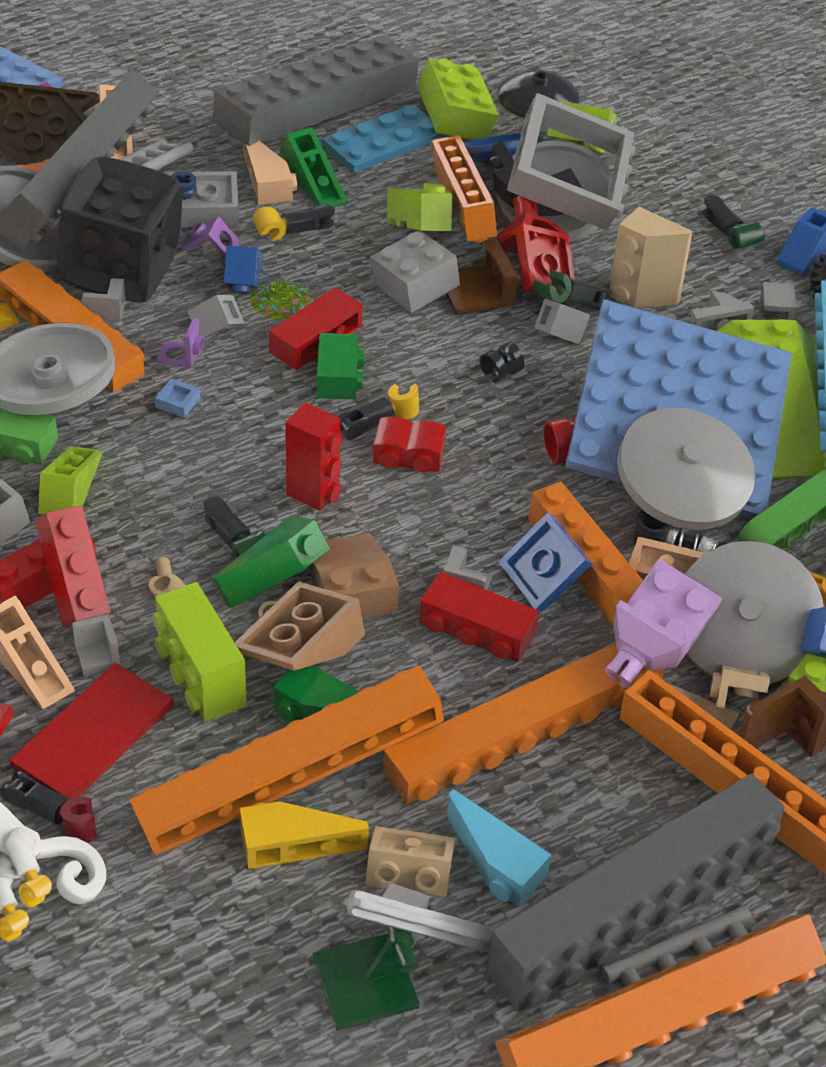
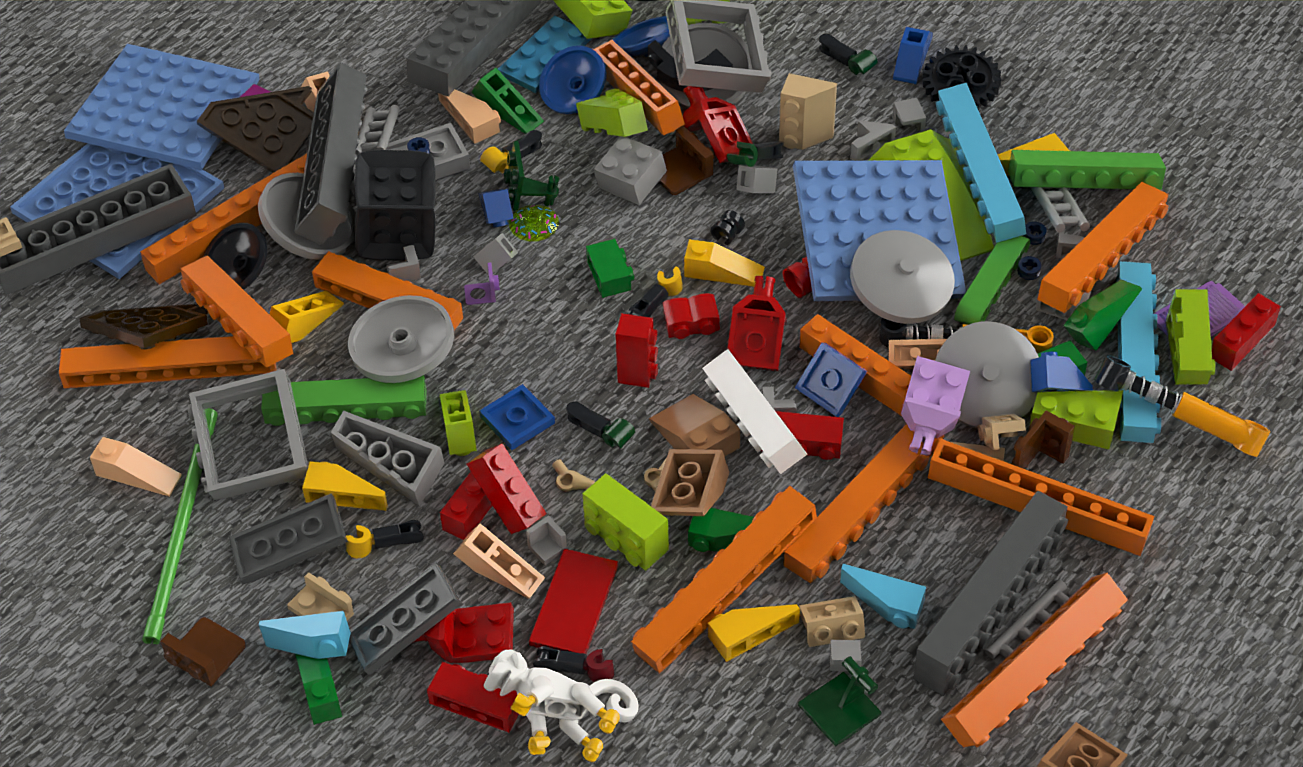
camera: 15 degrees left, 5 degrees up
(143, 496) = (517, 417): none -> blue plate
(177, 398) = (501, 330): medium blue plate -> none
(211, 231) = (455, 180): medium lavender bracket -> none
(272, 560) = (640, 437): green slope -> none
(288, 256) = (523, 186): none -> dark green plate
(297, 337) = (568, 252): red brick -> none
(397, 161) = (566, 73): none -> blue dish
(418, 920) = (871, 657): light grey axle -> none
(423, 571) = (754, 411): none -> white brick
(472, 398) = (719, 264): none -> yellow slope
(480, 479) = (758, 328): none -> red plate

